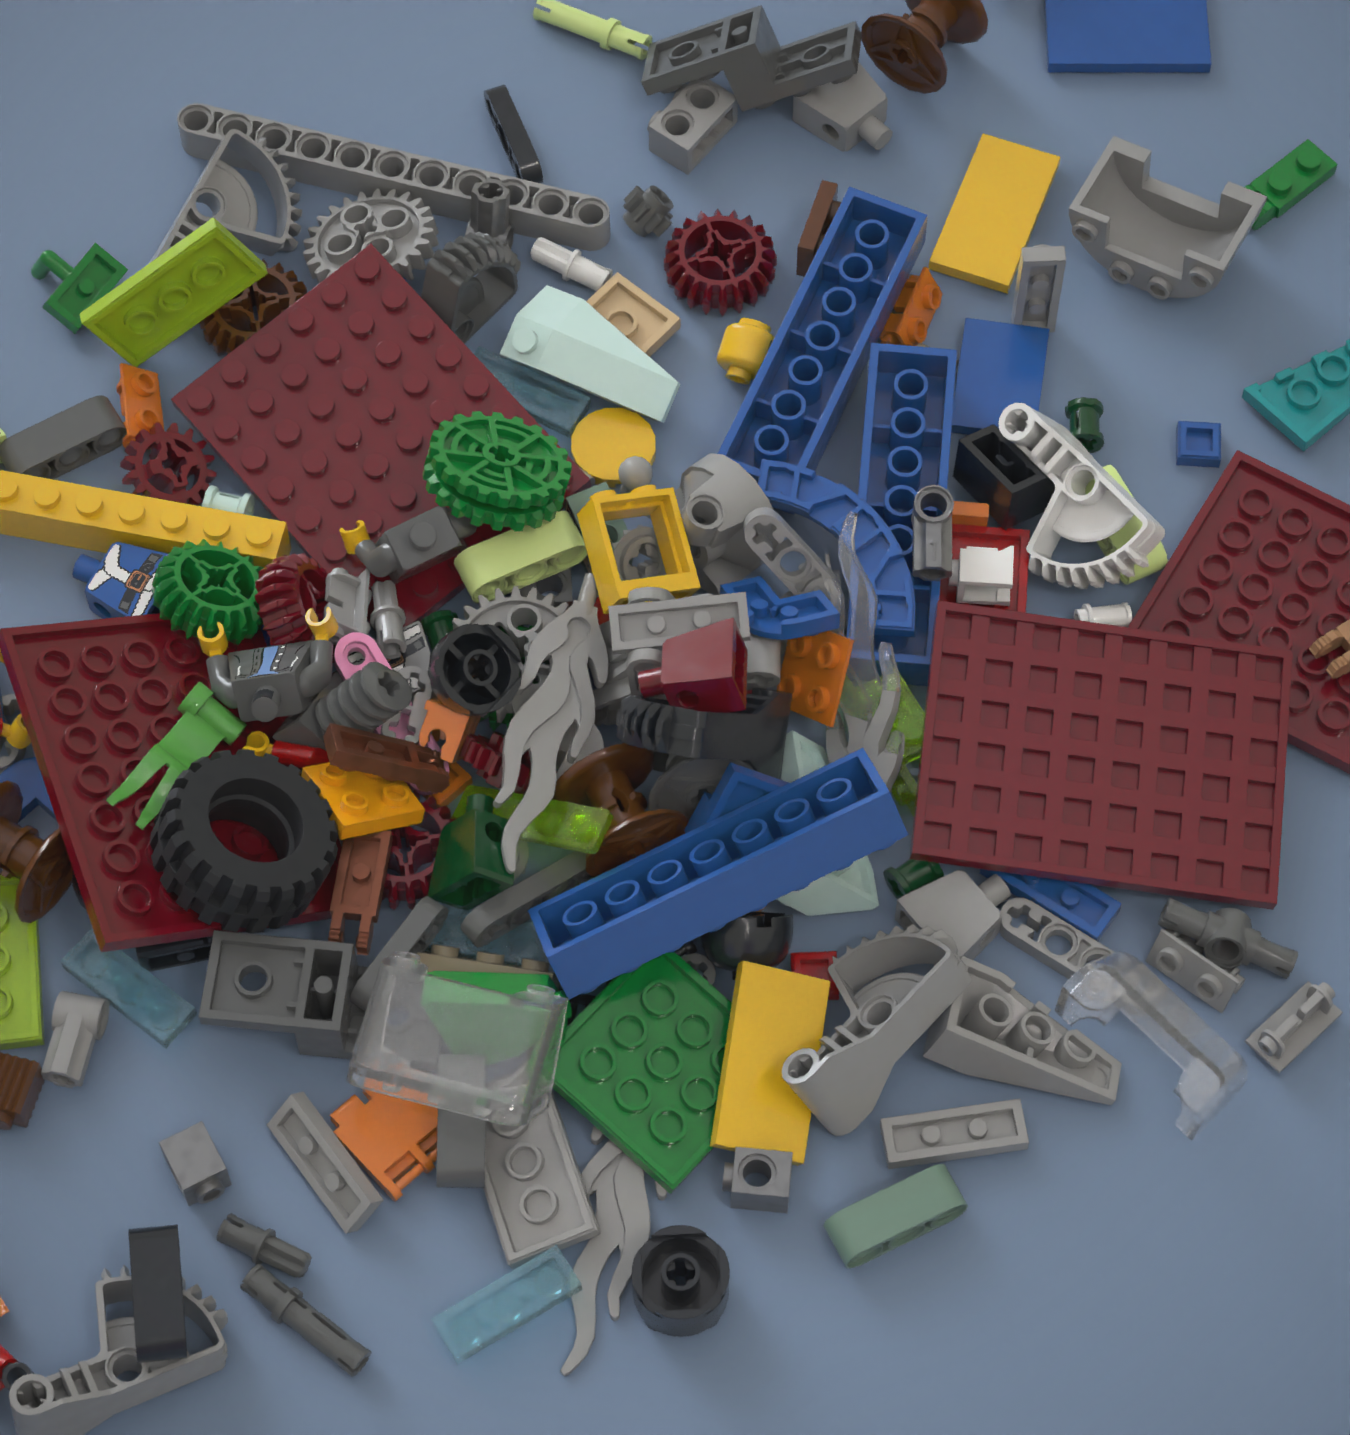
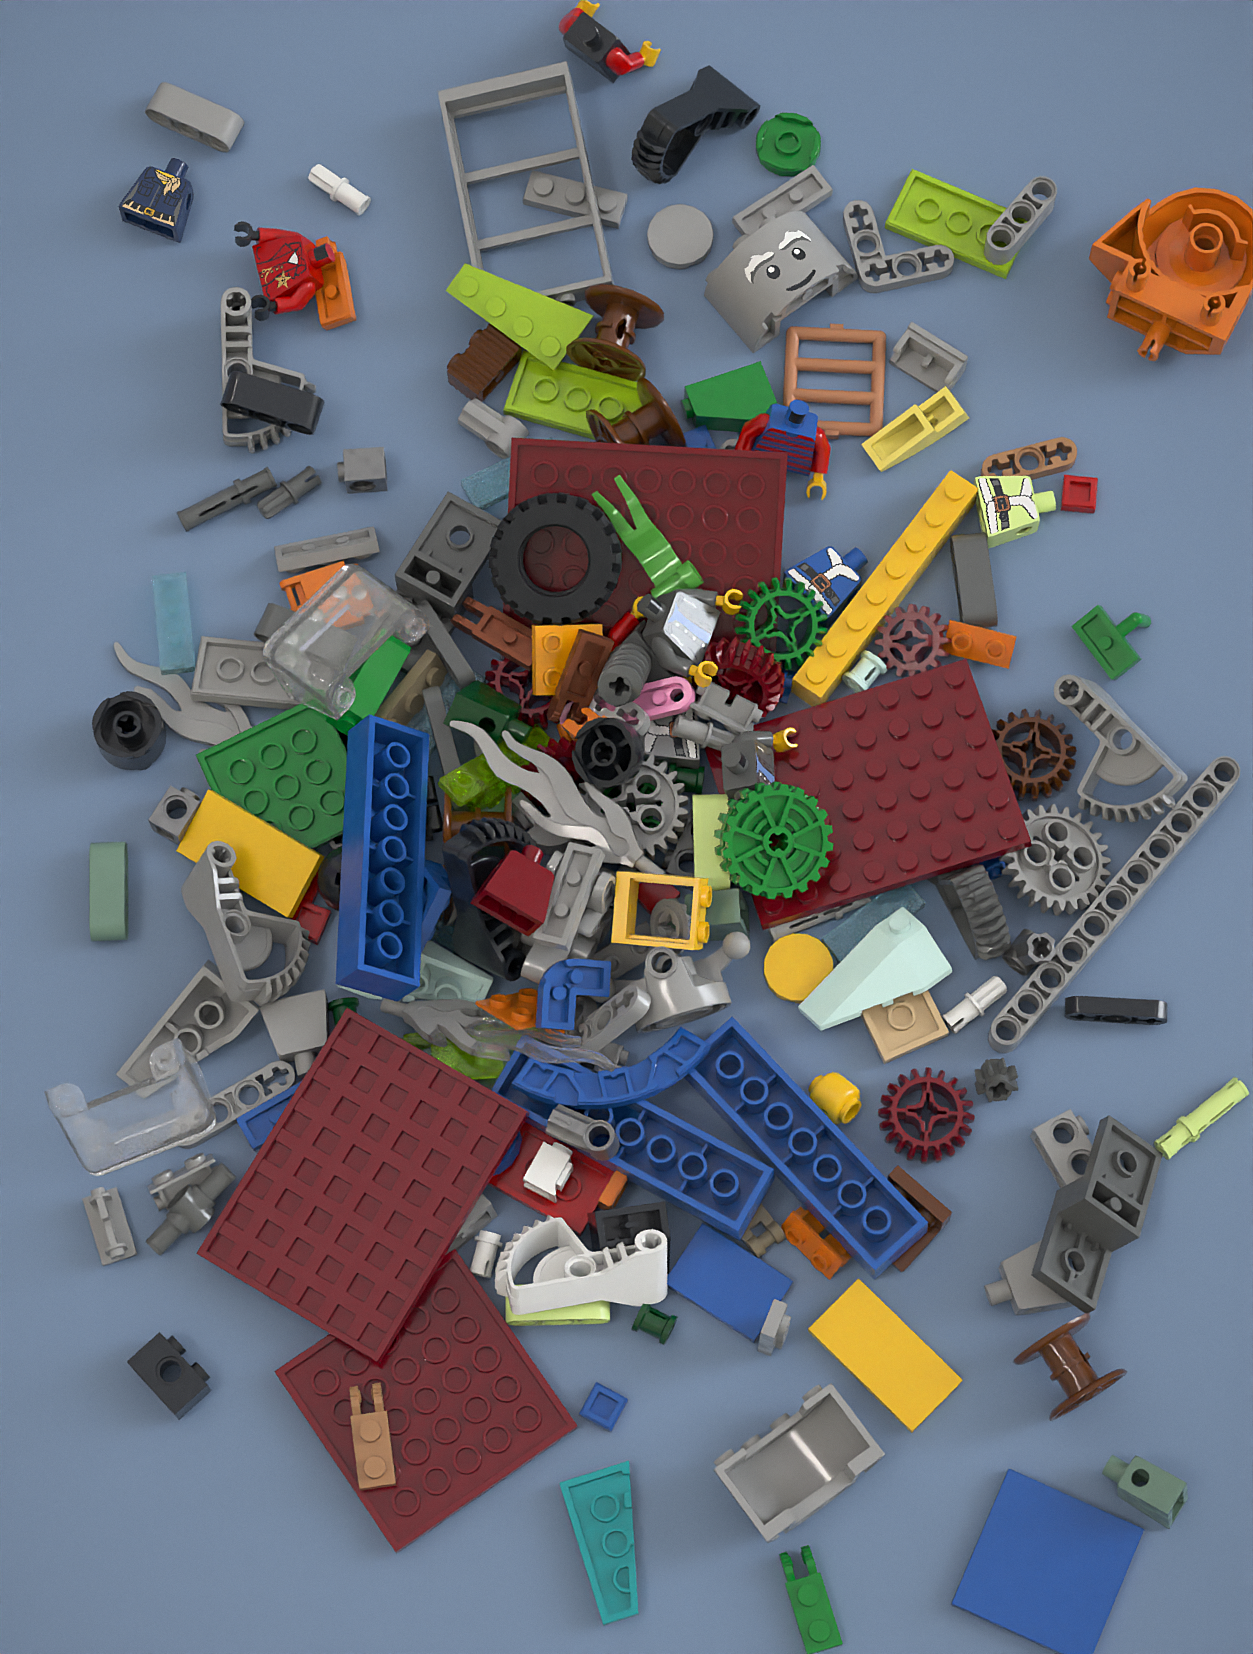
camera: 115 degrees right, 10 degrees up
(173, 293) = (1046, 683): lime tile -> none
(954, 1133) = (146, 957): light grey plate -> none

